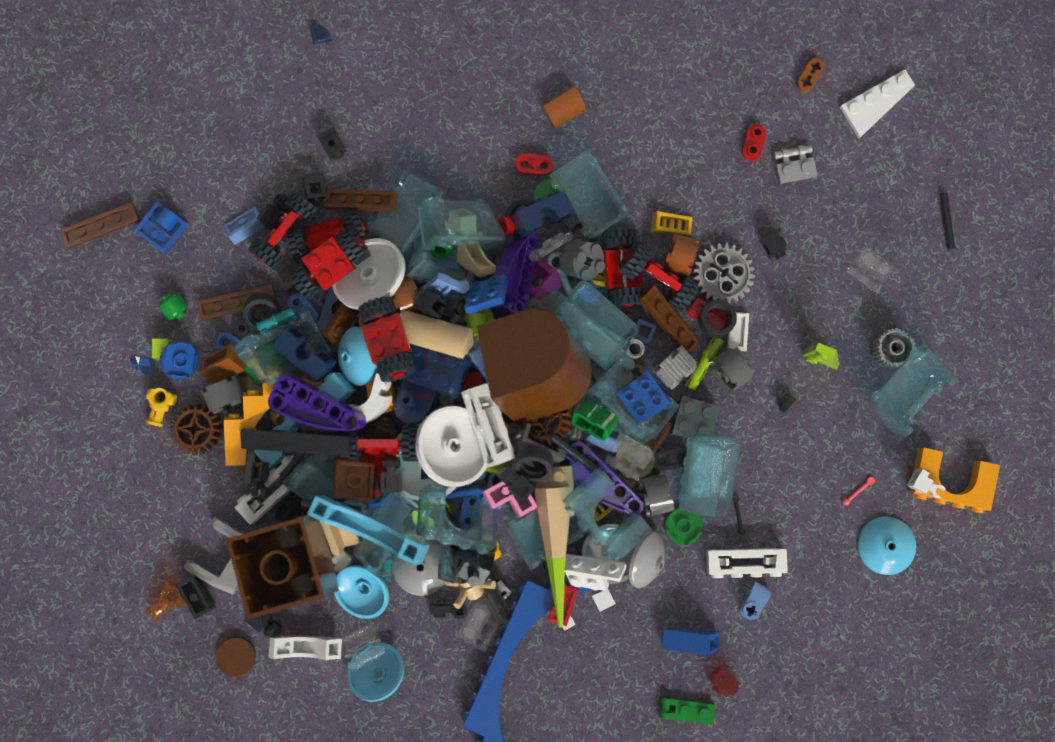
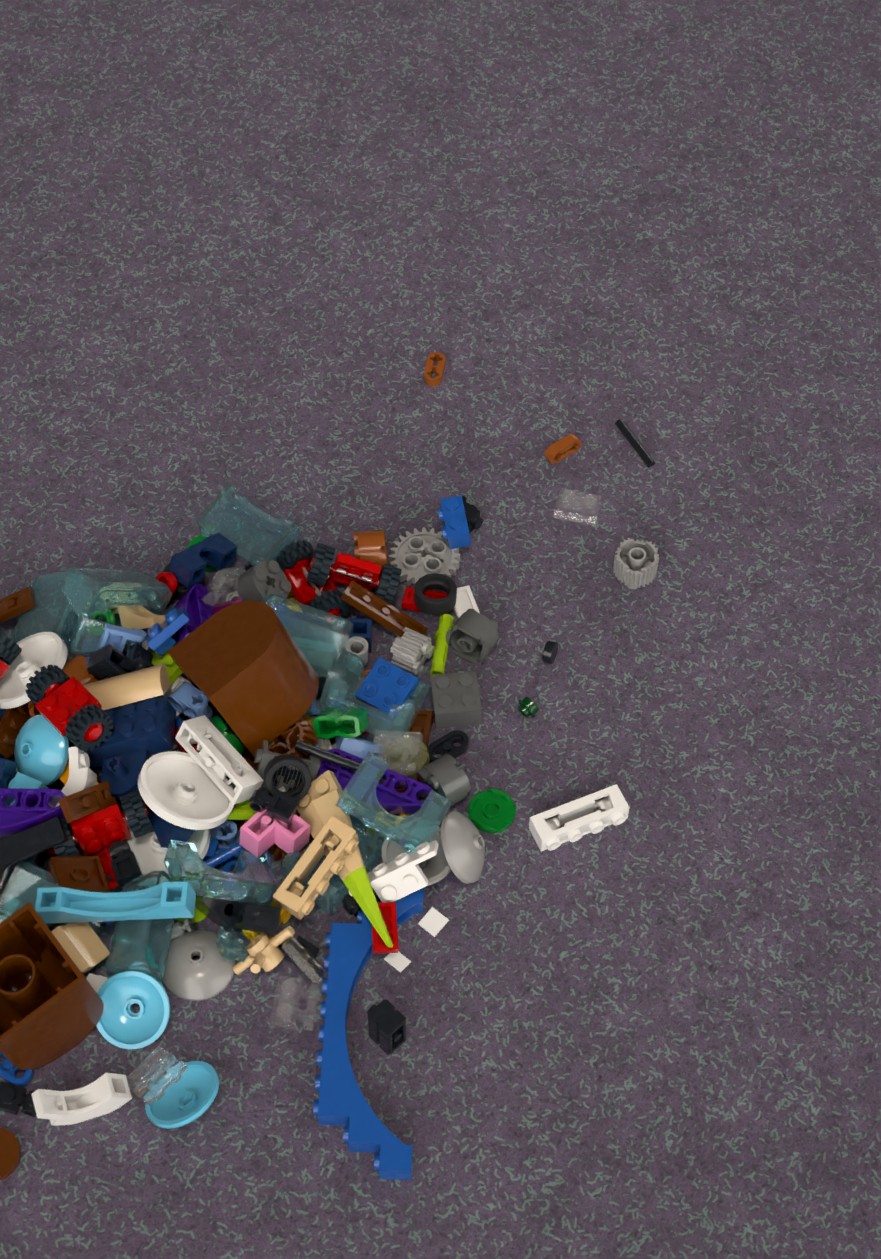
camera: 20 degrees left, 30 degrees down
(376, 428) = (87, 801): none -> reddish brown plate
(440, 610) = (241, 997): black plate -> none
(501, 567) = (341, 842): none -> tan brick
(534, 163) = (176, 529): red plate -> none
(535, 679) = (386, 1026): none -> black brick
(564, 108) = (189, 470): dark orange brick -> none
(656, 228) = (338, 529): yellow slope -> none
(687, 710) = (586, 1003): green plate -> none
(690, 641) = (554, 920): blue slope -> none
(709, 475) = (494, 737): clear light blue windscreen -> none
(723, 681) = (613, 951): clear red brick -> none
(735, 498) = (538, 765): black hinge -> none
(748, 447) = (527, 707): none -> dark green plate
(754, 141) = (403, 440): red plate -> none
(755, 598) = (608, 856): medium blue piece -> none
(761, 257) = (455, 520): none -> blue brick
(795, 170) = (458, 449): light grey plate -> none
(822, 354) = (563, 587): lime wing -> none
(870, 481) = (677, 697): coral hinge -> none
(871, 105) = (508, 374): white wing -> none
(874, 544) = (727, 761): medium azure dish -> none
(884, 205) = (562, 448): none -> dark orange beam
(910, 389) = (671, 585): clear light blue windscreen -> none
(923, 484) = (728, 665): white piece -> none
(977, 495) = (741, 676): light orange arch -> none

